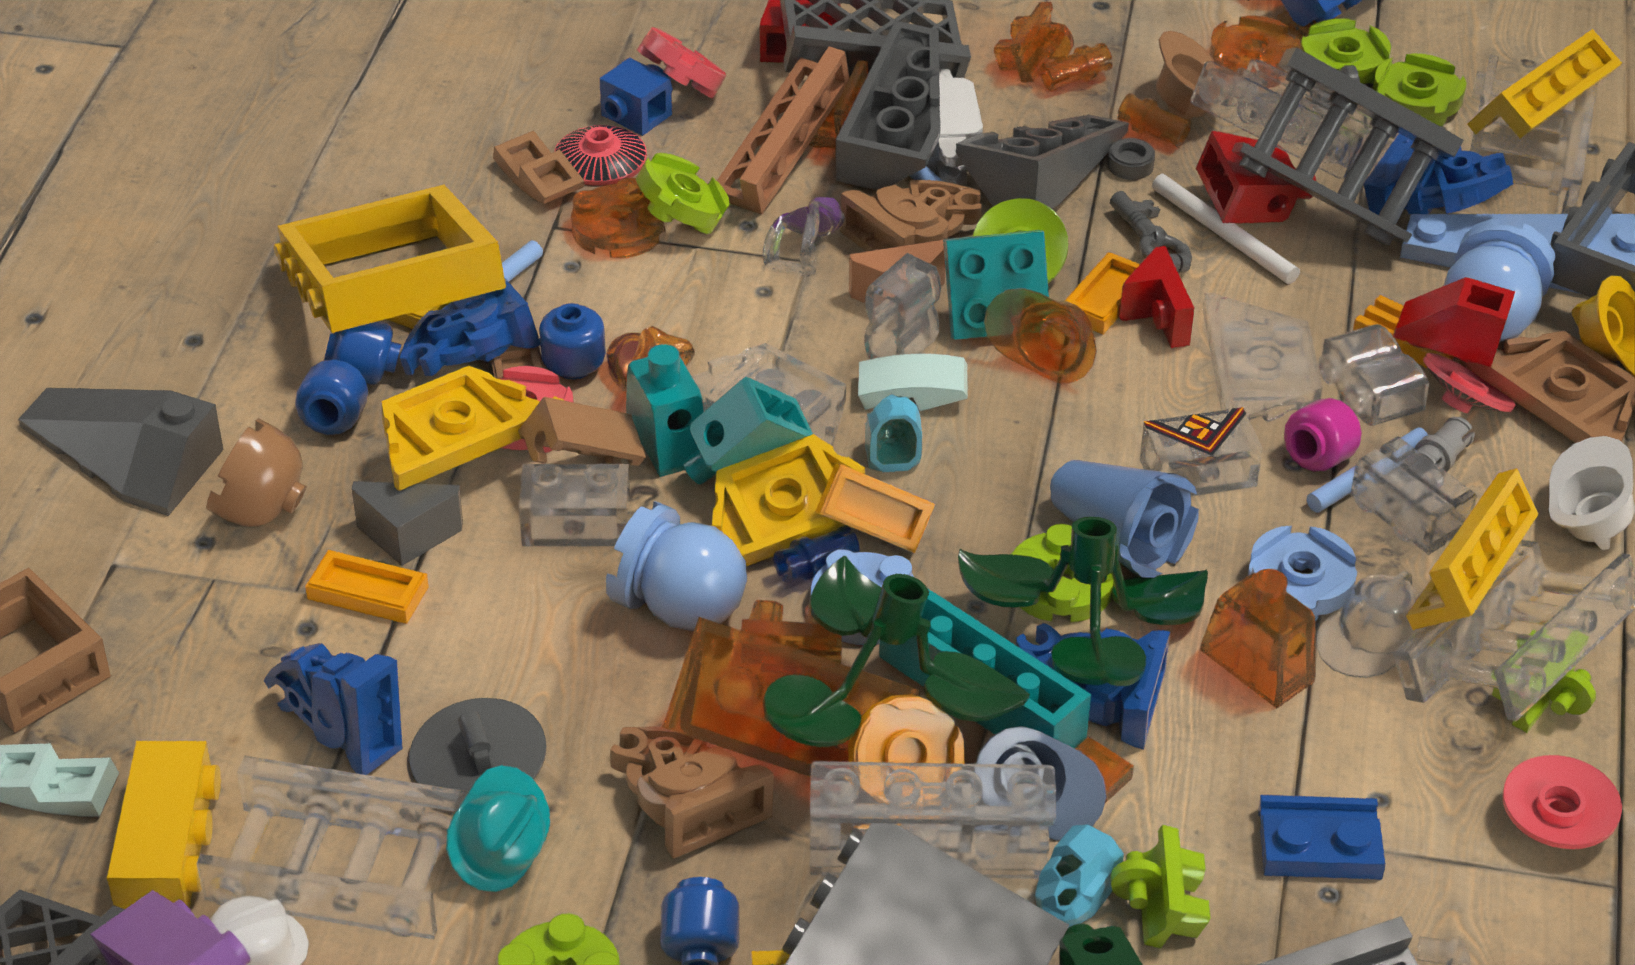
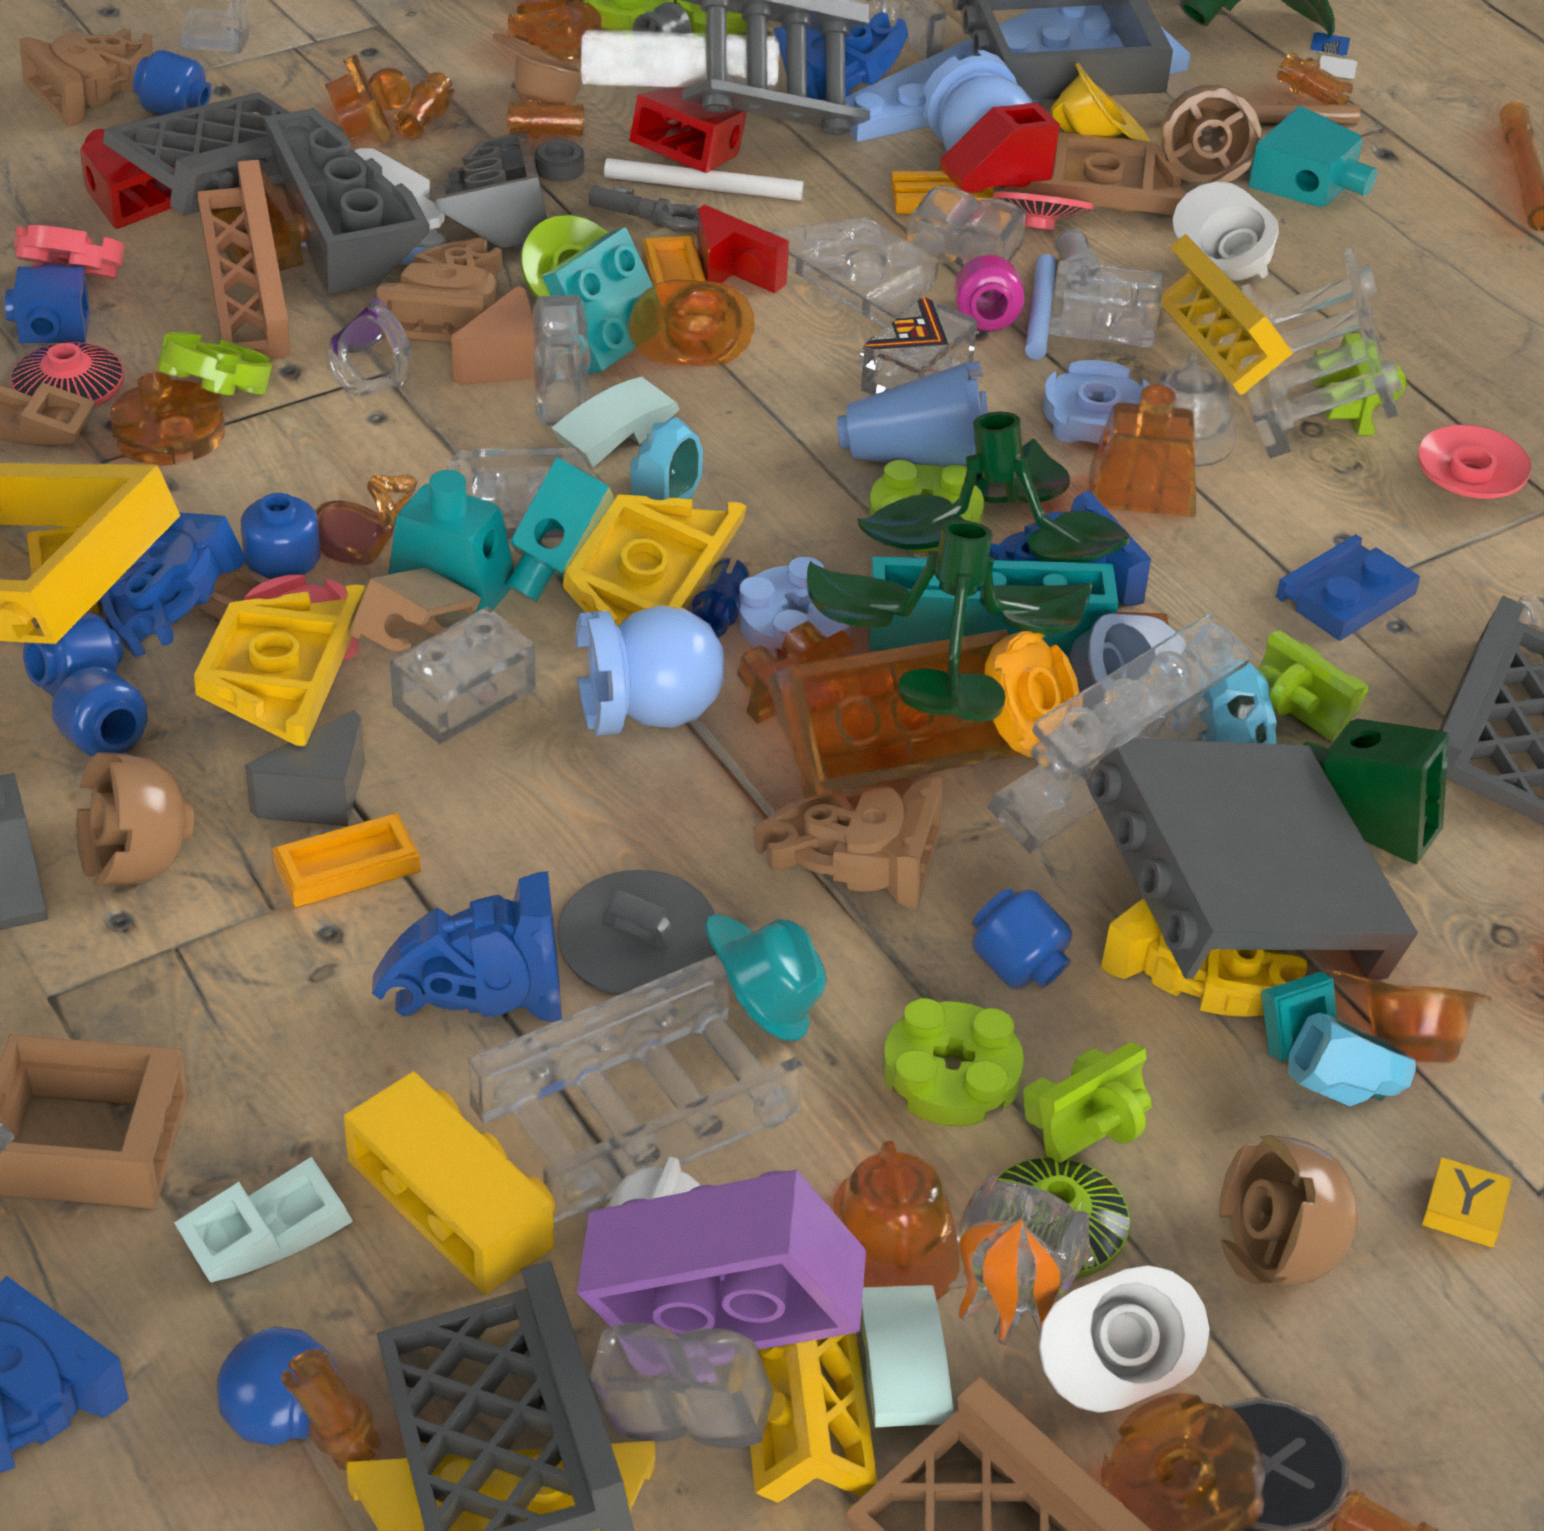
camera: 45 degrees left, 0 degrees up
(875, 507) = (739, 526): light orange tile -> none

